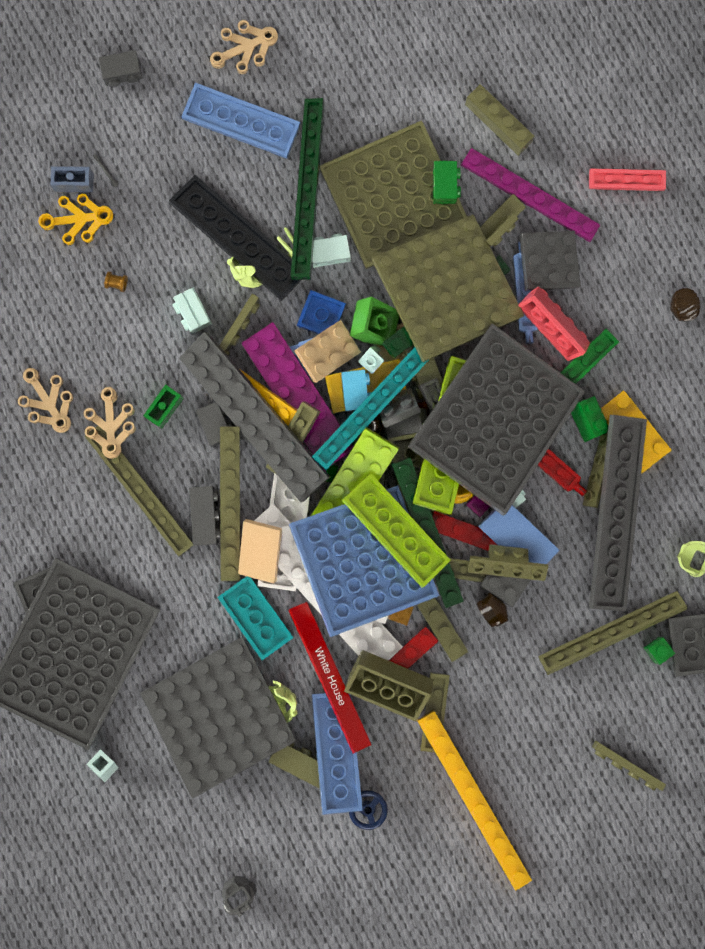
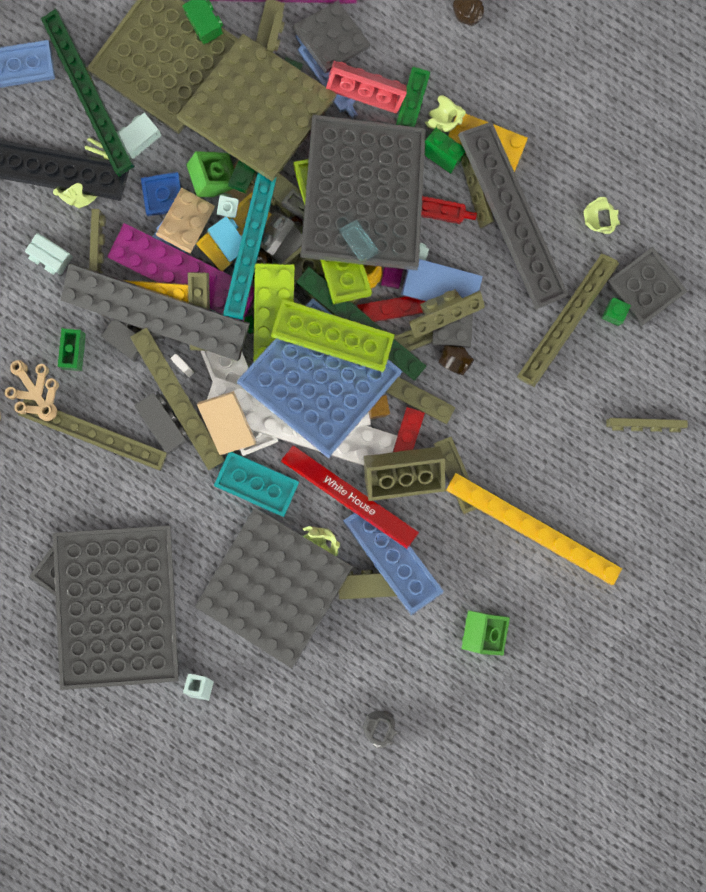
camera: 30 degrees left, 0 degrees up
(251, 477) = (182, 365): none -> white tile
(377, 798) = (460, 600): dark blue piece -> none
(378, 866) = (485, 633): none -> bright green slope
(466, 462) = (359, 241): none -> clear light blue tile
(608, 387) = (443, 115): none -> yellowish green helmet

